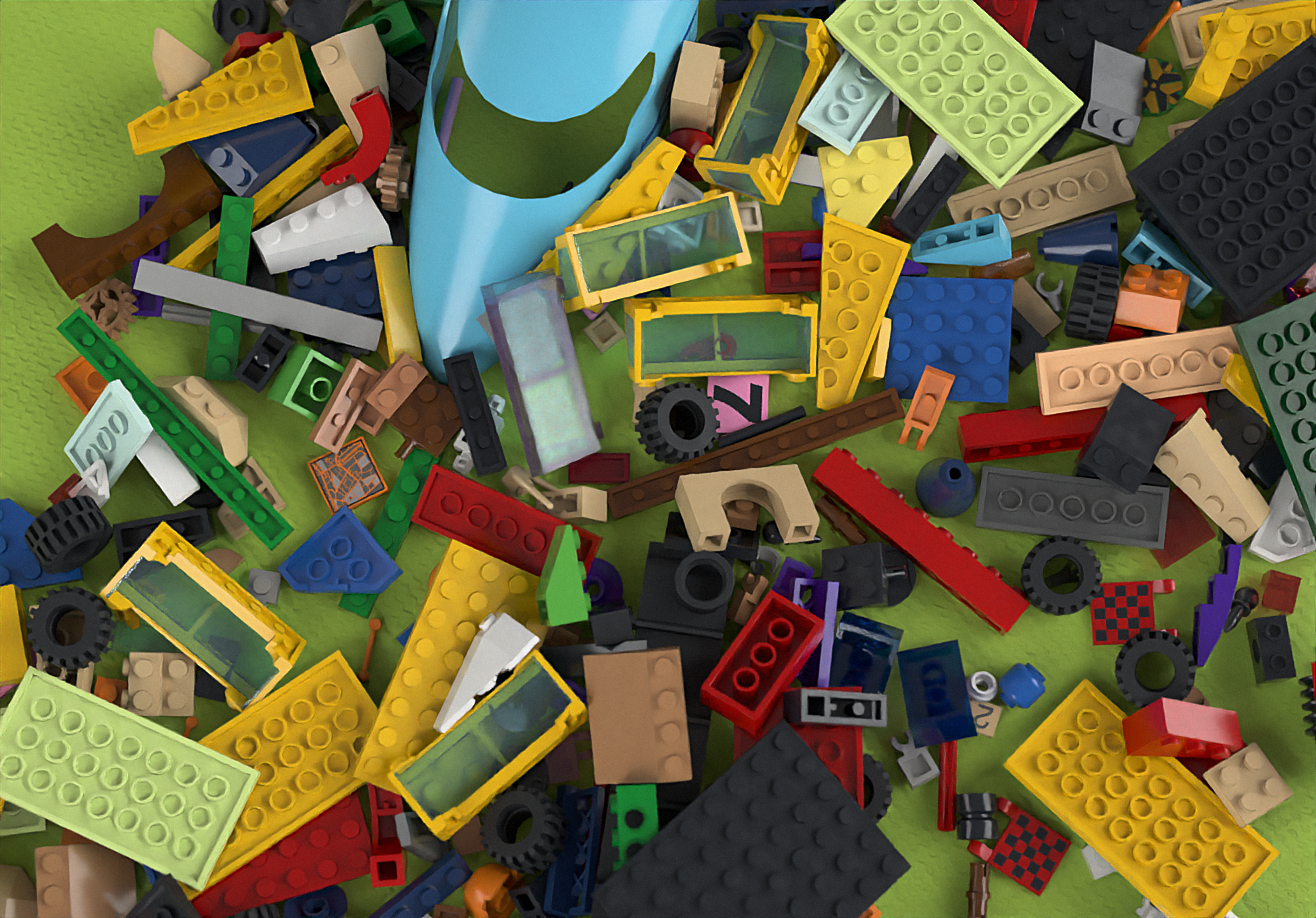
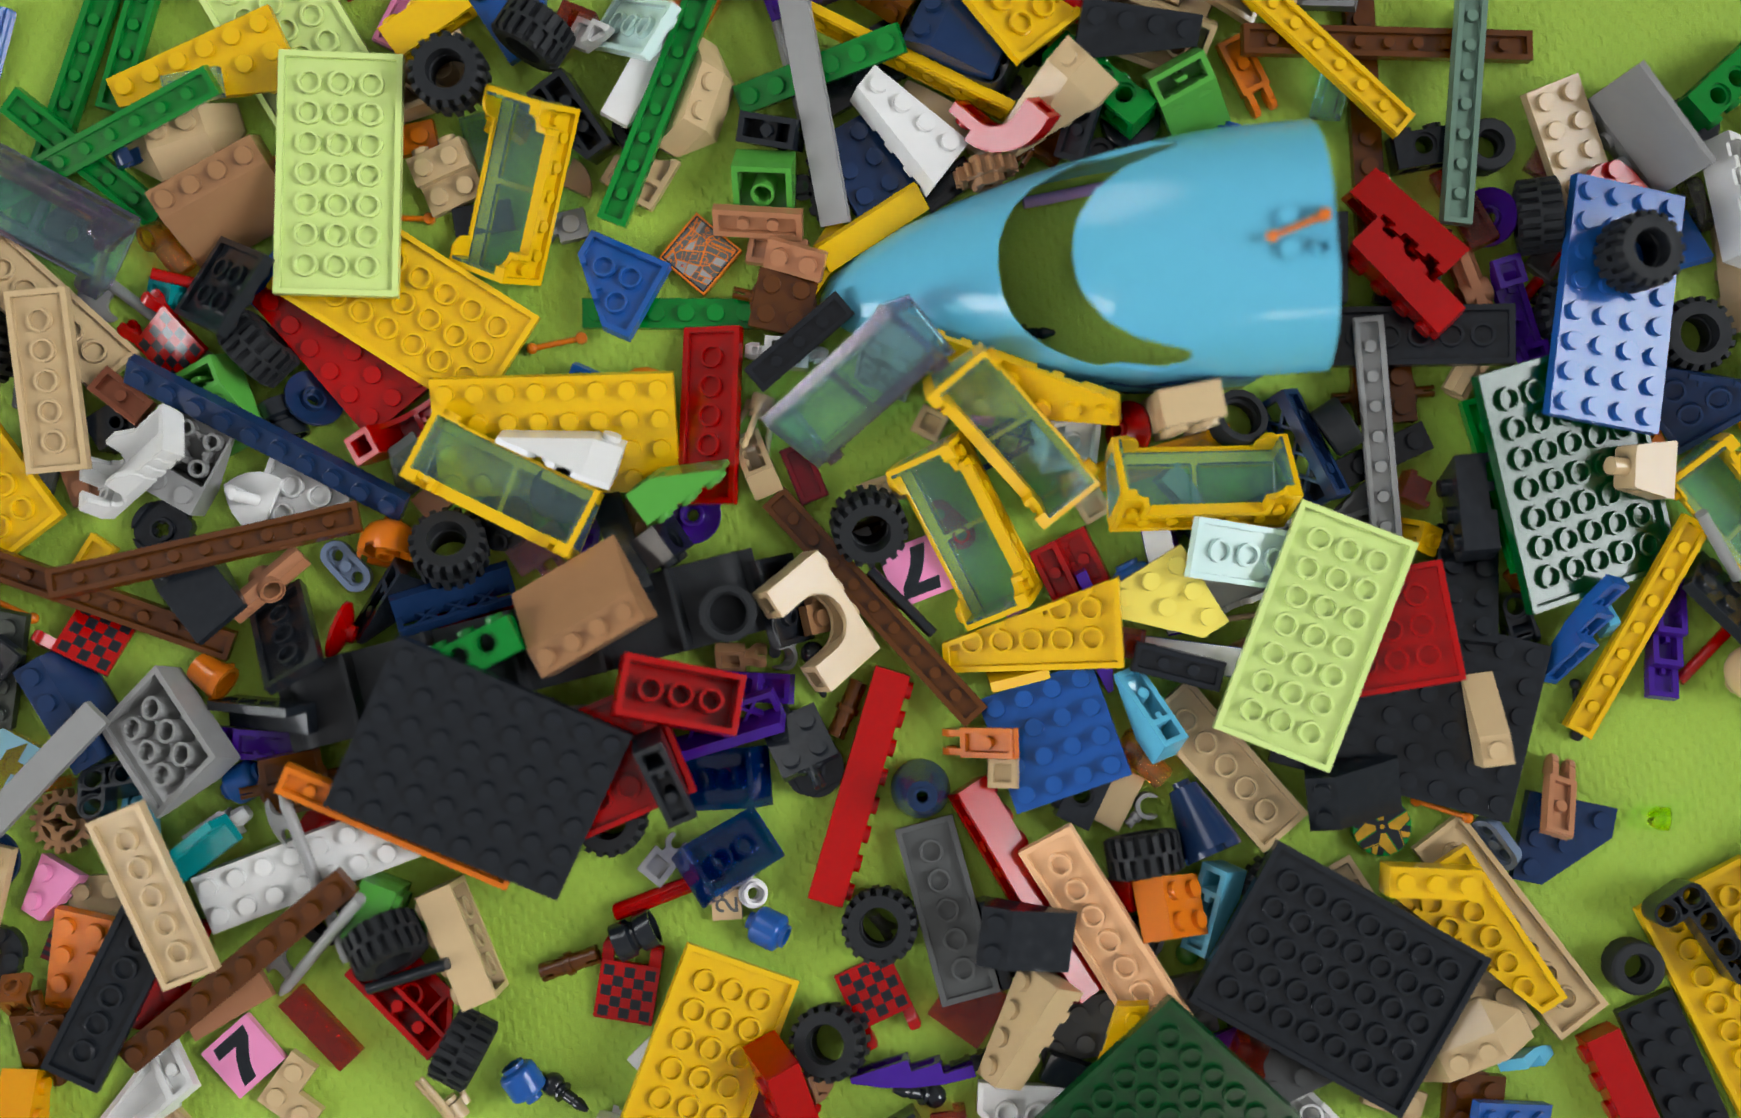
camera: 70 degrees right, 10 degrees up
(963, 398) = (1003, 773): none -> tan tile

